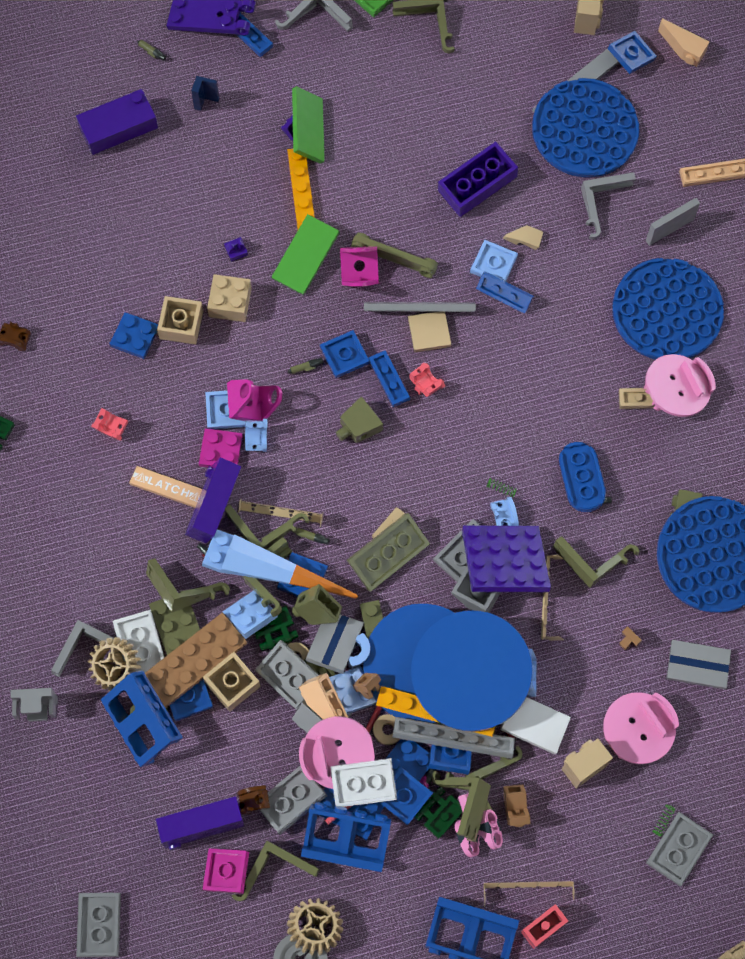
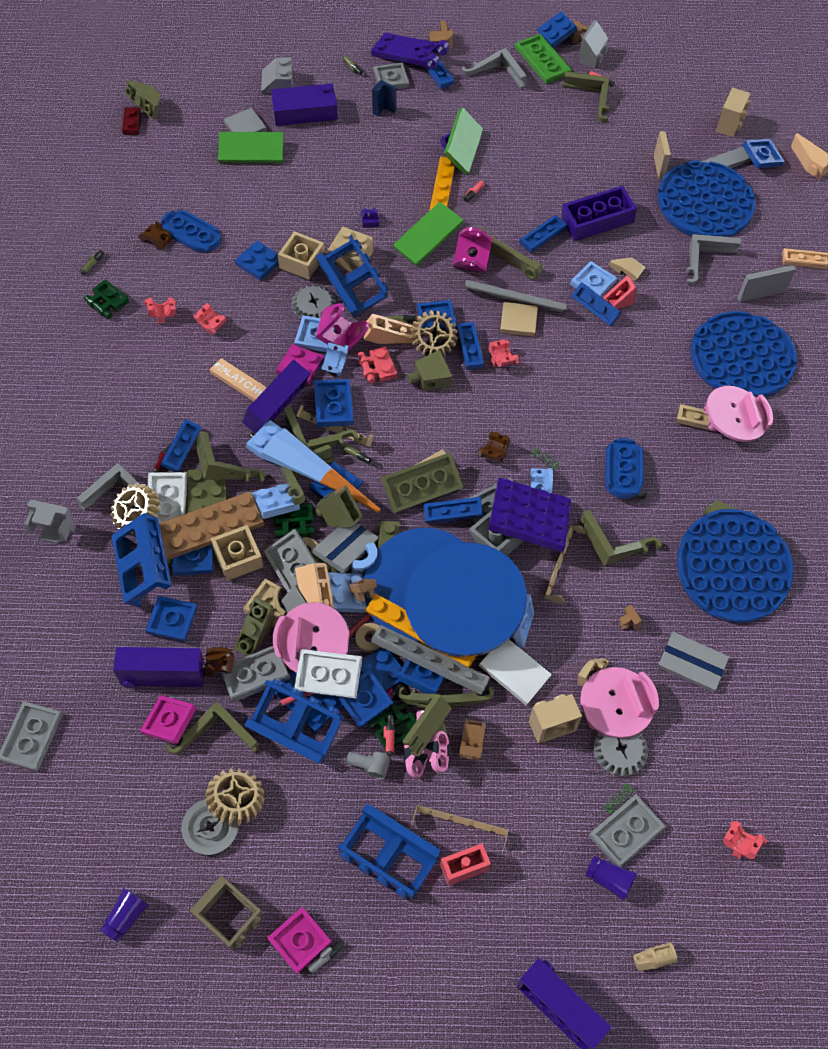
camera: 15 degrees right, 10 degrees down
(48, 318) = (191, 231): none -> blue tile
(54, 427) = (161, 310): none -> coral piece
(59, 164) = (245, 122): none -> light grey tile
(73, 91) = (277, 75): none -> light grey slope
(76, 194) = (250, 147): none -> bright green tile
(118, 596) = (157, 468): none -> dark red piece
(132, 579) = (181, 446): none -> blue plate
(190, 768) = (171, 619): none -> blue plate
(200, 54) = (392, 74): none -> light grey tile
(213, 359) = (302, 301): none -> light grey gear
(237, 342) = (344, 283): none -> blue window
(270, 486) = (333, 403): none -> blue plate
(276, 726) = (269, 593): none -> tan tile
(276, 756) = (256, 627): none -> olive slope
(303, 384) = (387, 331): none -> light nougat slope
(305, 424) = (382, 362): none -> coral plate
(335, 184) = (473, 191): none -> piece
(349, 369) = (440, 335): none -> tan gear
(425, 219) = (543, 233): none -> blue plate
(428, 573) = (453, 510): none -> blue plate
(433, 855) = (375, 764): none -> light grey pin
(438, 824) = (389, 732): none -> piece
(448, 491) = (495, 447): none -> reddish brown piece
(526, 86) = (662, 154): none -> tan tile
(527, 274) = (622, 294): none -> coral slope
(610, 696) = (591, 667): none -> tan slope
(652, 786) = (616, 762): none -> light grey gear
(677, 897) = (611, 877): none -> dark purple plant

